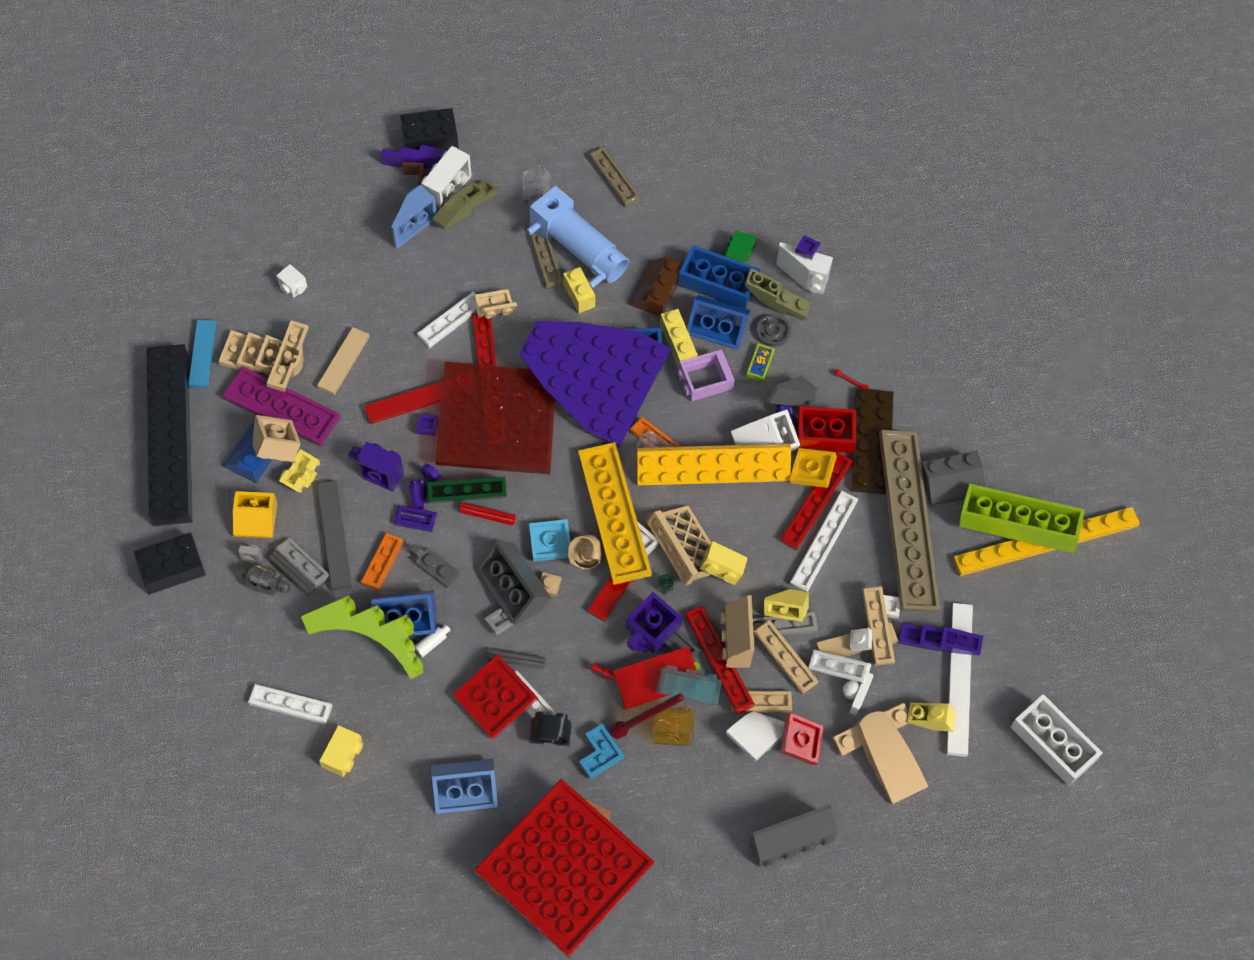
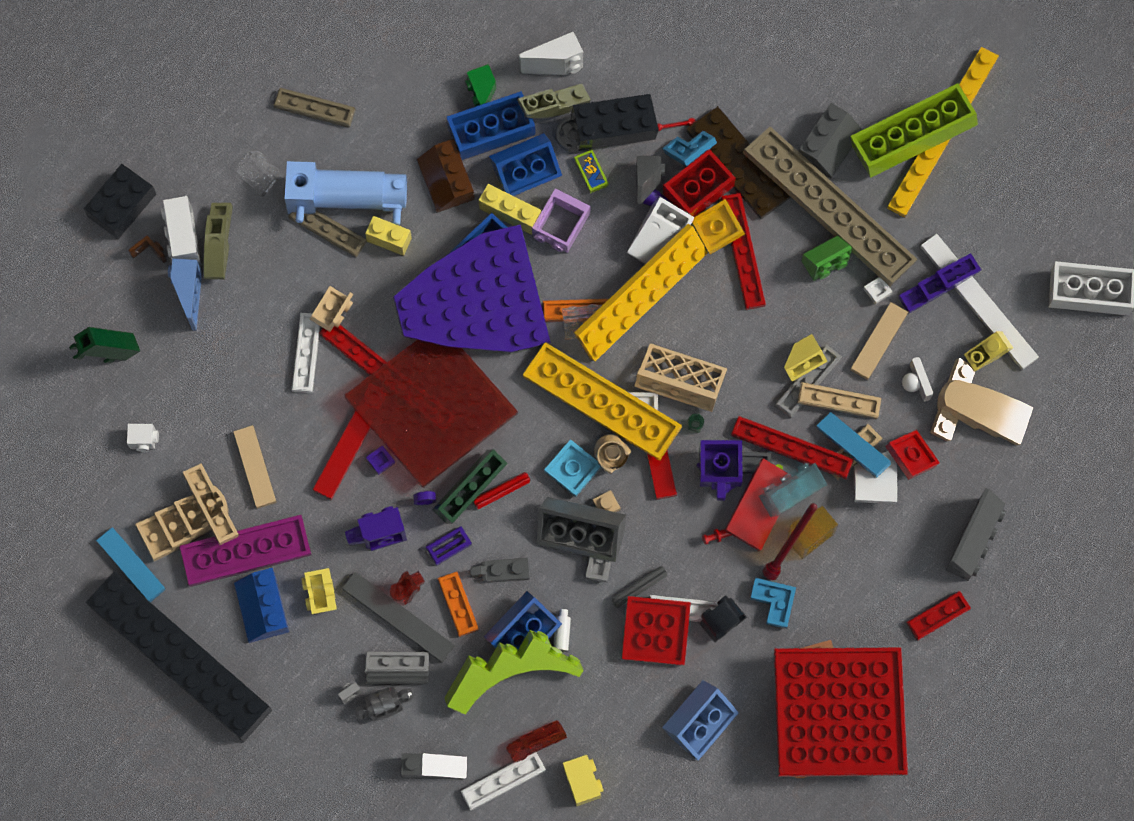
camera: 40 degrees left, 10 degrees up
(169, 563) = (294, 759): black brick -> none
(253, 650) = (432, 766): none -> slope
(254, 514) = (321, 659): yellow slope -> none
(275, 438) = (279, 582): tan slope -> none
(324, 202) = (105, 344): none -> dark green brick
(338, 696) = (536, 741): none -> clear red hinge
(359, 518) = (406, 587): none -> clear red hips
(418, 493) = (431, 524): dark purple cone -> none
(425, 155) = (140, 227): dark purple slope -> none
(711, 871) = (938, 615): none -> red tile
(723, 563) = (725, 367): light yellow brick -> none
(738, 633) = (793, 414): tan slope -> none
(765, 695) = (853, 445): none -> dark azure tile
(807, 247) = (548, 41): dark purple plate -> none
(807, 341) = (614, 122): none -> black brick
(823, 542) = (779, 280): white tile -> none
(838, 399) = (687, 152): none -> dark azure plate
(839, 666) = (888, 372): white tile -> none
(861, 639) = (884, 336): white plate -> none
(872, 553) = (826, 258): none -> bright green slope
(878, 623) = (885, 313): tan tile -> none

